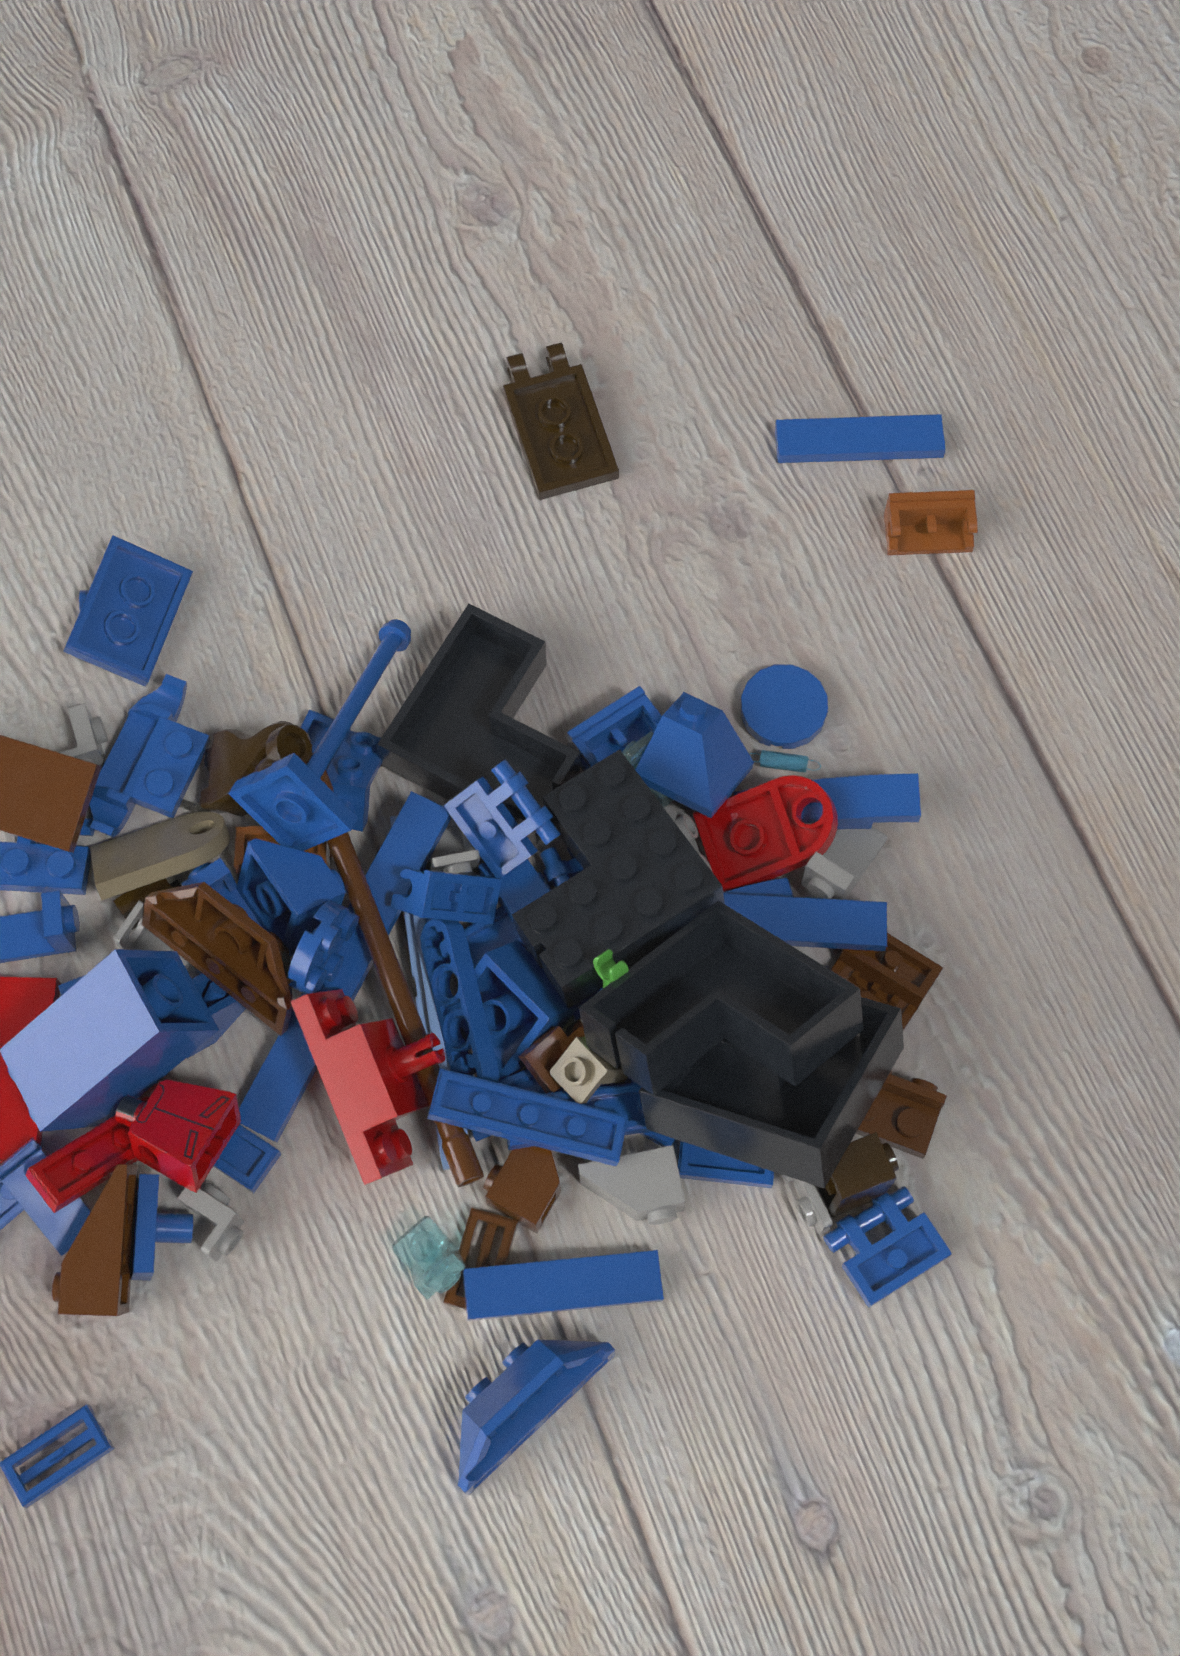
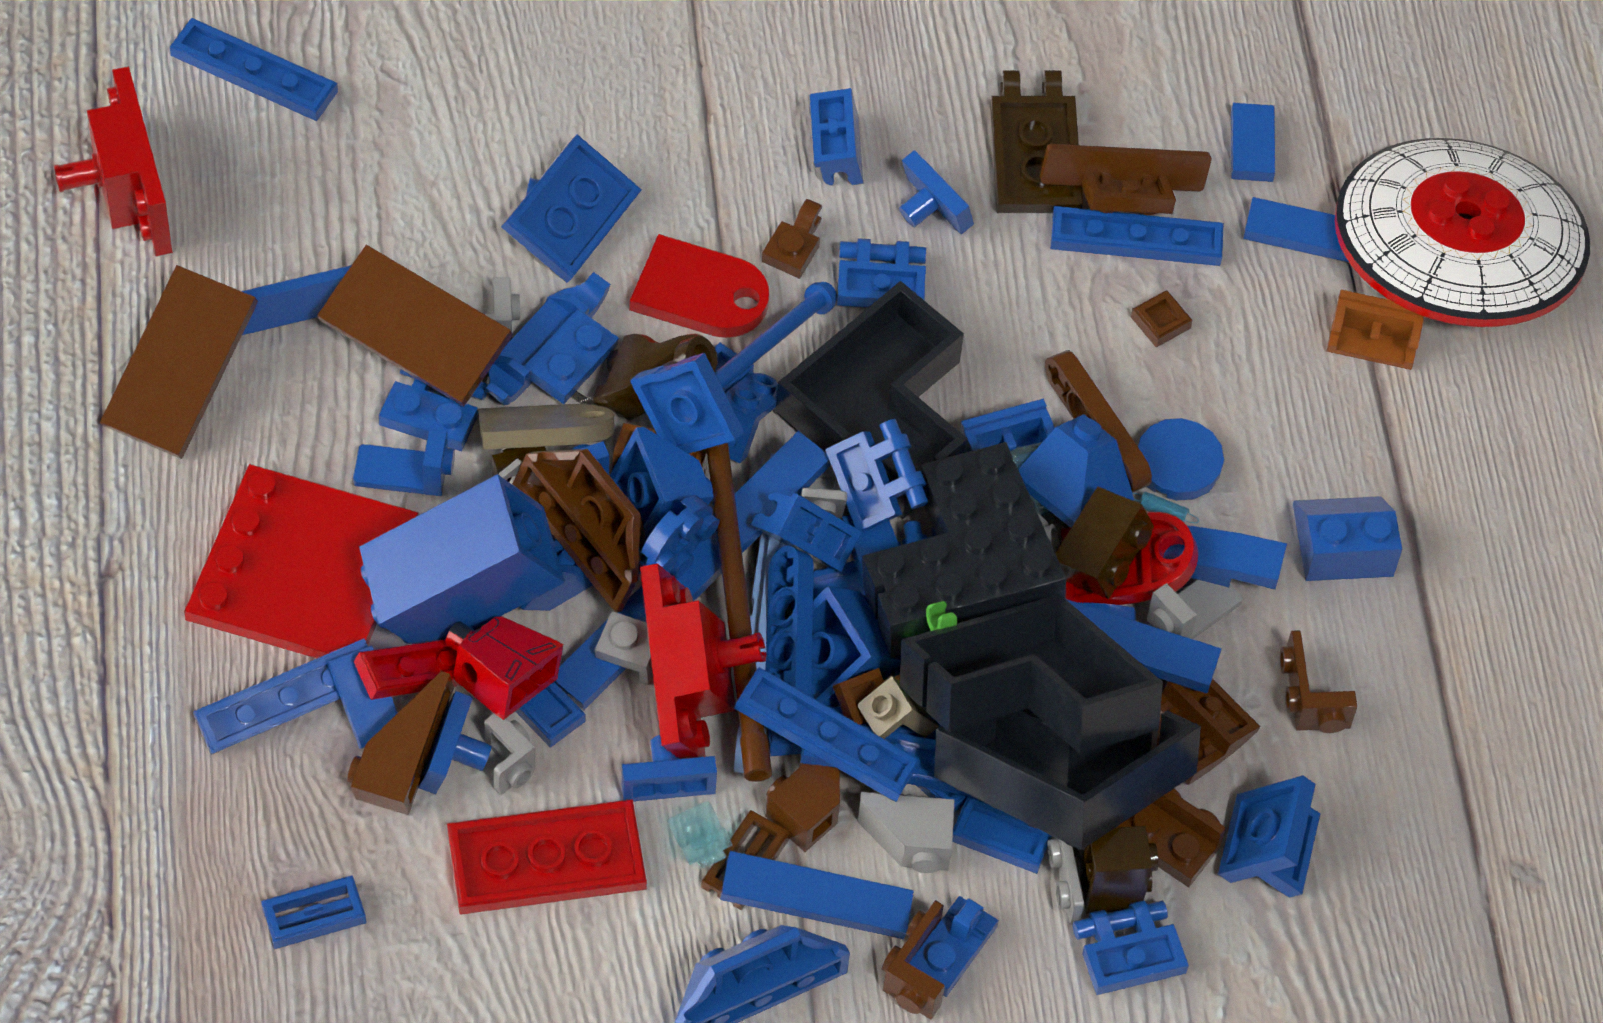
camera: 10 degrees right, 10 degrees down
(274, 658) = (700, 289): none -> red tile
(279, 1320) = (546, 856): none -> red tile
(295, 1067) = (627, 645): none -> light grey bracket
(355, 588) = (795, 246): none -> reddish brown plate
(366, 465) = (836, 135): none -> blue hinge
(379, 1198) = (668, 776): none -> blue tile
(438, 608) = (866, 281): none -> blue plate
(474, 502) = (932, 196): none -> blue tile
(653, 434) = (1126, 177): none -> reddish brown bracket
(678, 488) = (1137, 236): none -> blue tile
(681, 676) = (1083, 398): none -> reddish brown beam
(688, 1364) = (910, 986): none -> reddish brown bracket
(712, 1296) = (955, 942): none -> blue hinge
(725, 566) = (1161, 318): none -> reddish brown tile
(742, 824) = (1104, 542): none -> dark brown brick
(759, 364) = (1252, 142): none -> blue tile
(967, 742) = (1347, 538): none -> blue slope
(973, 443) = (1493, 270): none -> dish
(989, 1086) = (1272, 835): none -> blue bracket
(1002, 935) = (1313, 710): none -> reddish brown bracket

